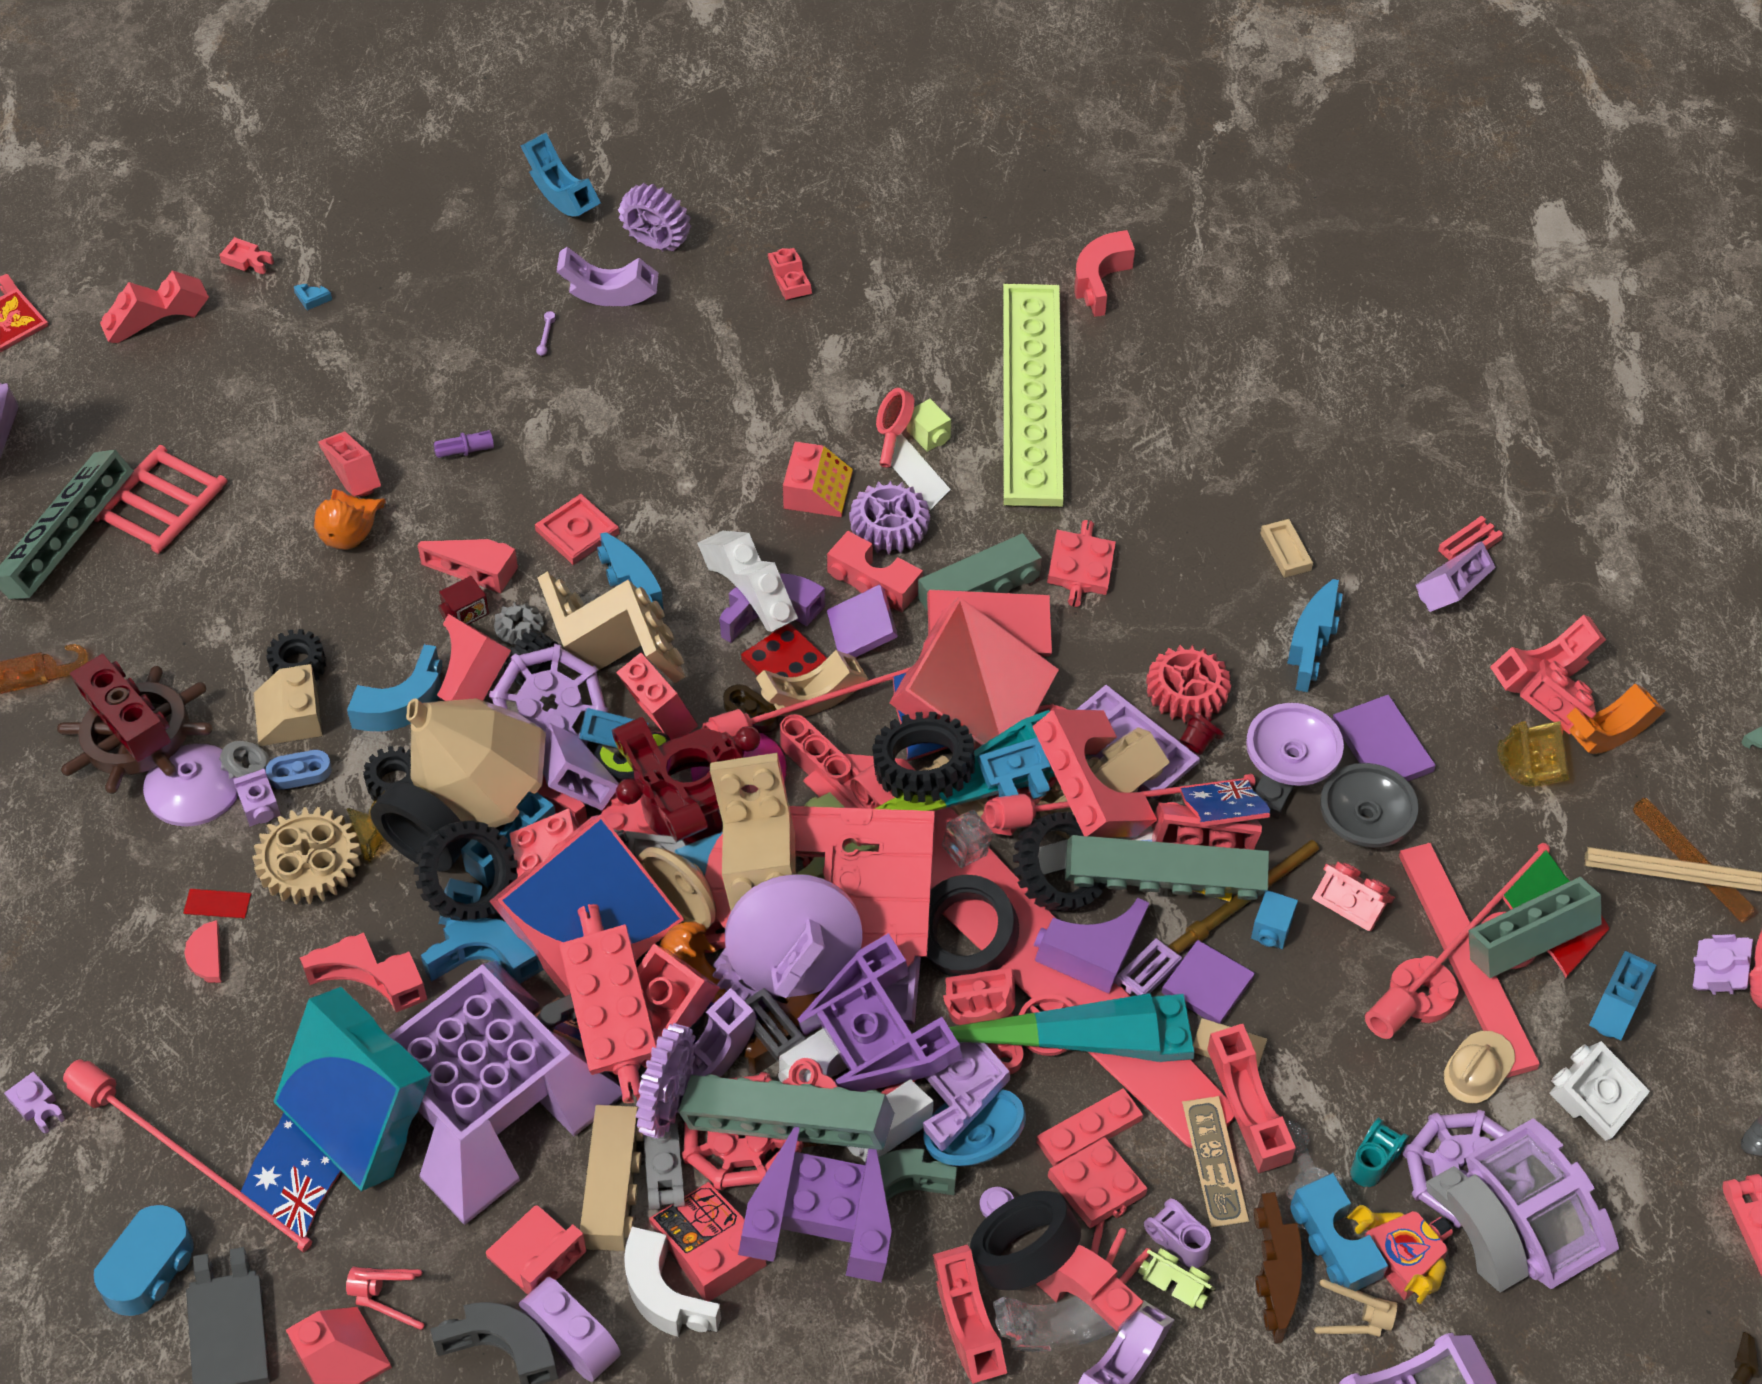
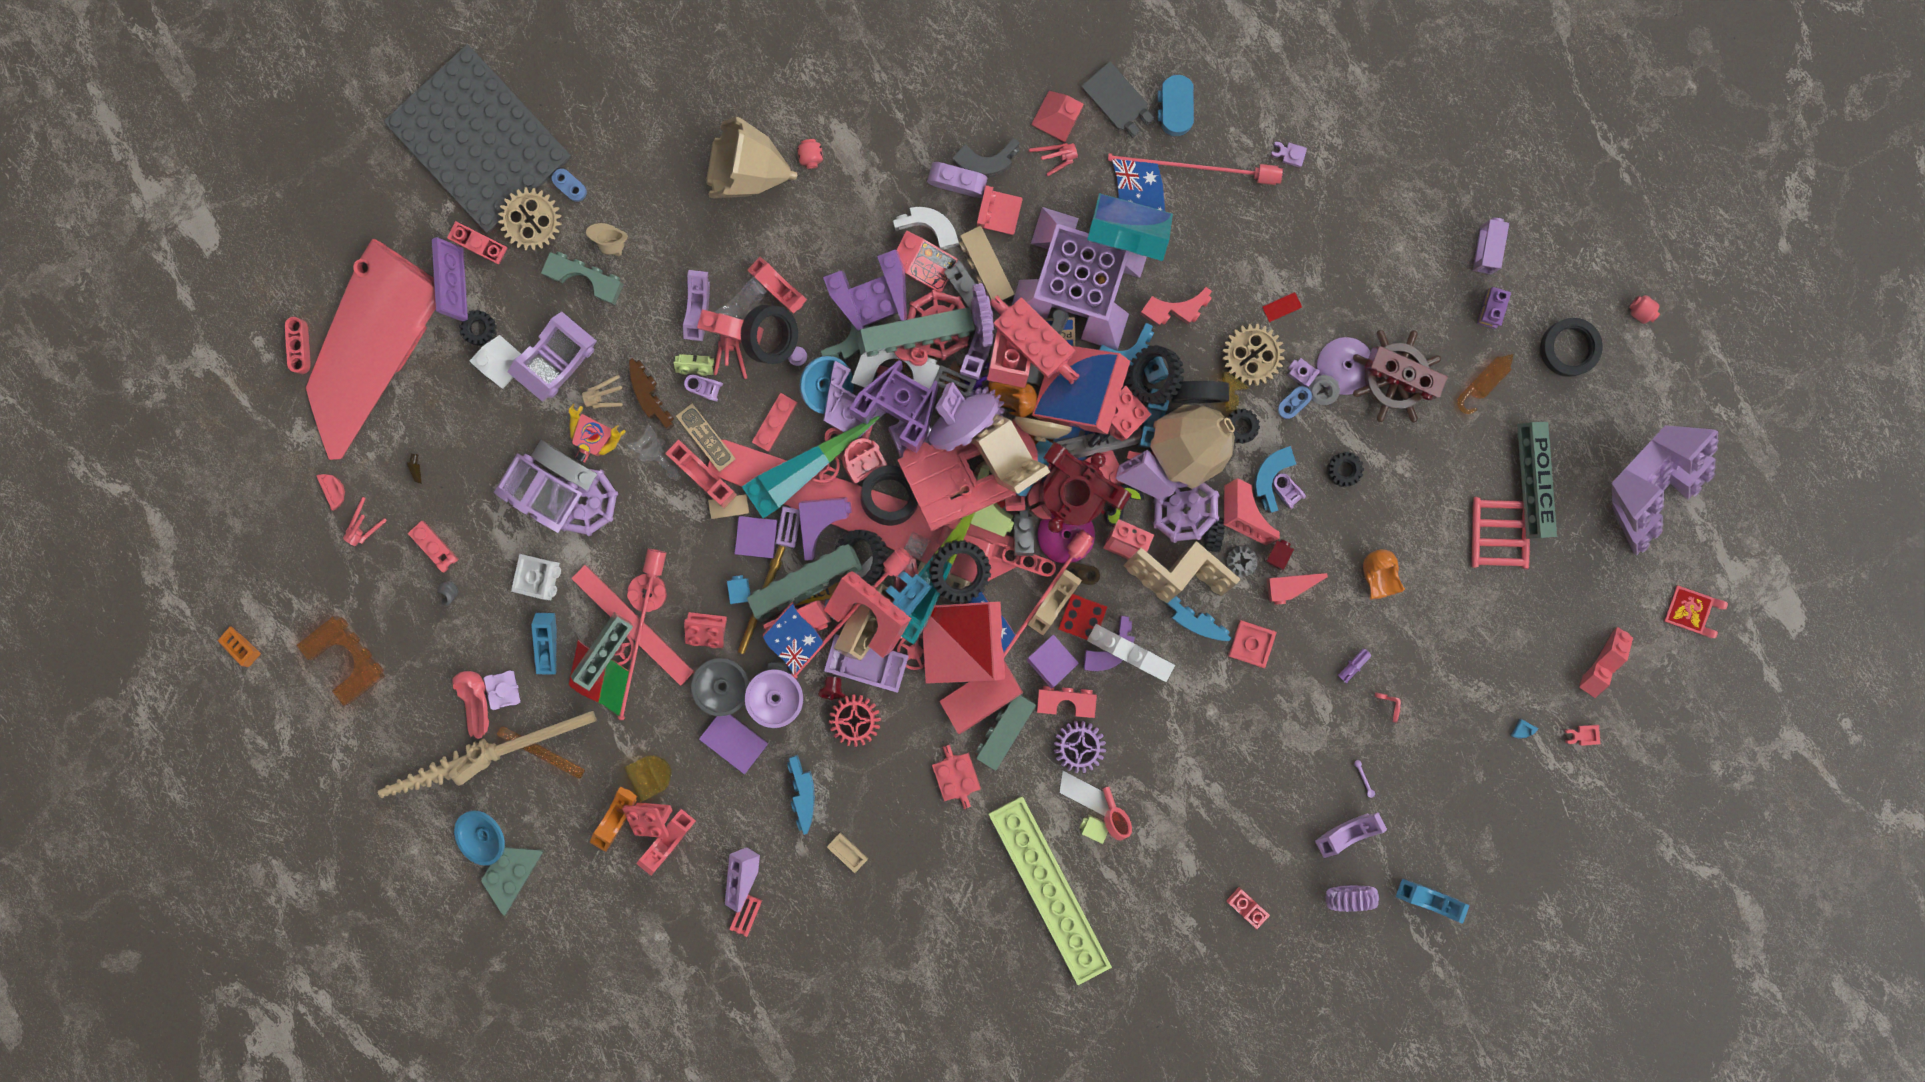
camera: 150 degrees right, 35 degrees up
(203, 952) = (1266, 274): coral tile -> none
(288, 706) = (1327, 436): tan slope -> none
(351, 464) = (1410, 615): coral slope -> none
(392, 666) = (1288, 491): none -> lavender piece
(454, 398) = (1397, 706): none -> coral piece
(598, 727) = (1144, 514): dark azure tile -> none
(805, 775) = (1023, 533): none -> dark grey hinge
(816, 481) = (1135, 750): coral slope -> none
(1097, 1183) = (755, 393): coral plate -> none
(1099, 258) = (1065, 1024): coral arch -> none
(1348, 1262) = (641, 432): dark azure arch -> none
(1378, 1148) = (628, 485): teal piece -> none
(1479, 1066) = (600, 561): tan piece -> none

